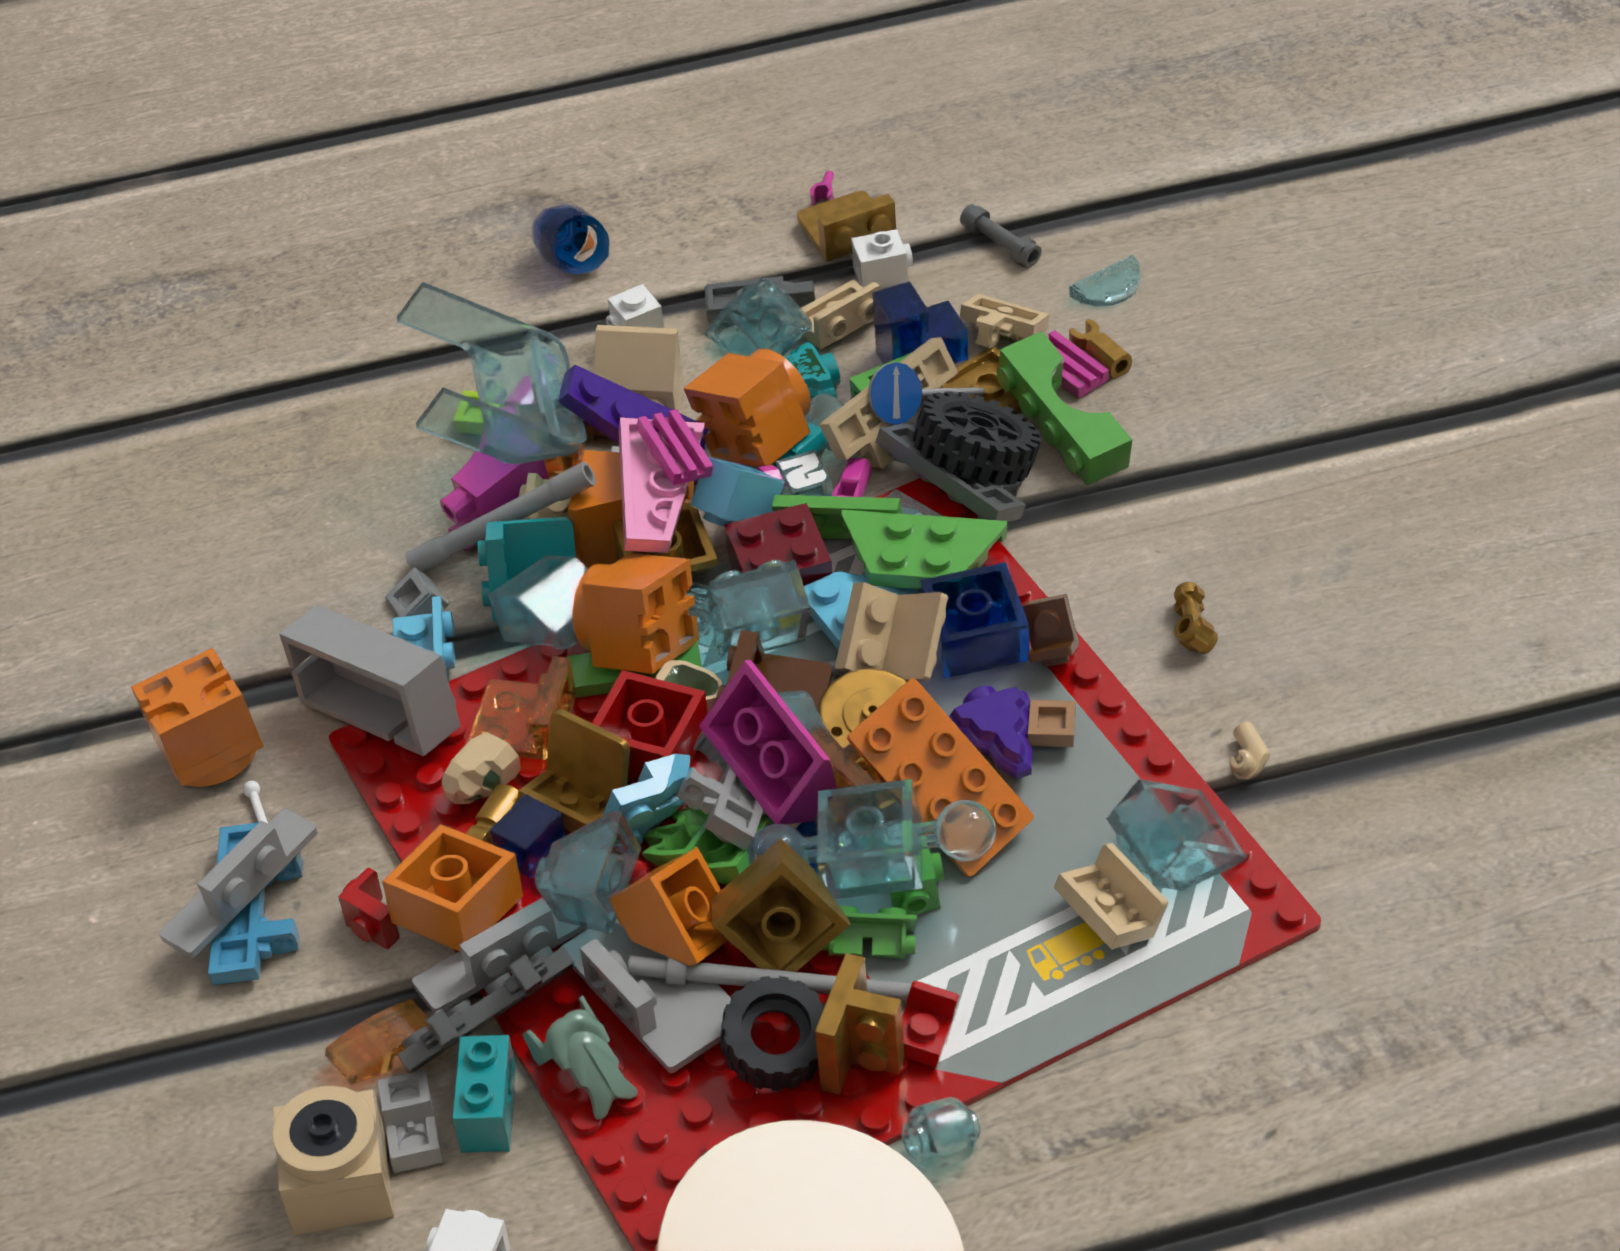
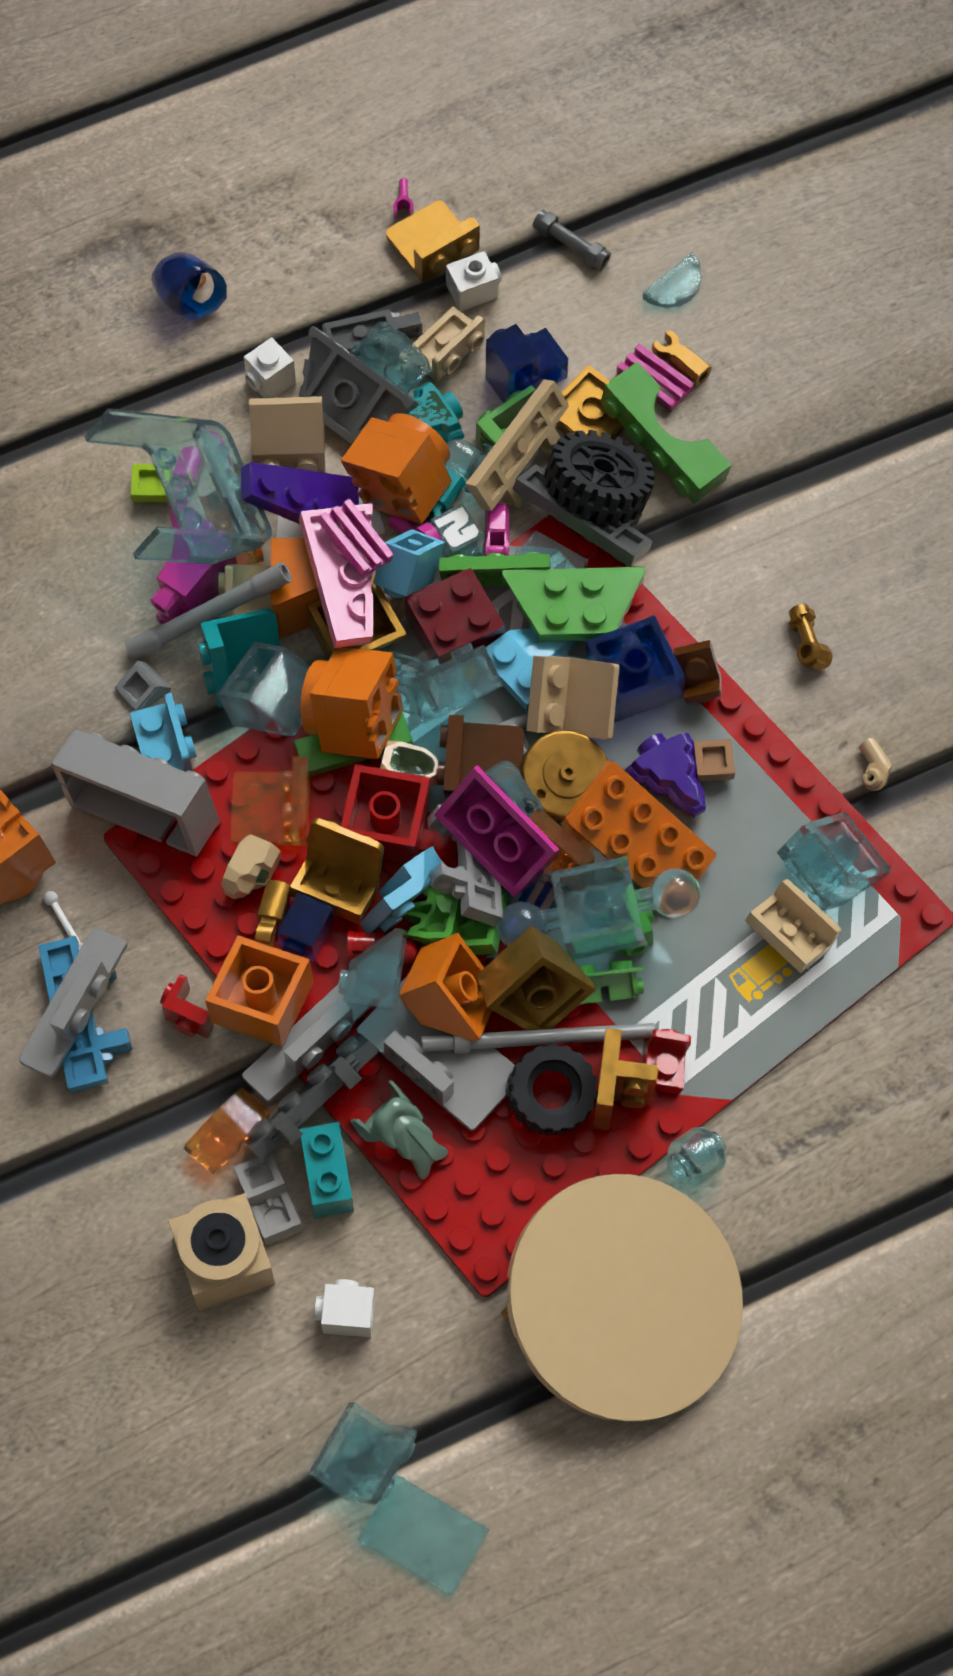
camera: 15 degrees left, 20 degrees up
(713, 329) = (349, 388): none -> dark grey wing
(897, 393) = (526, 440): blue piece -> none
(999, 318) = (592, 337): tan hinge -> none

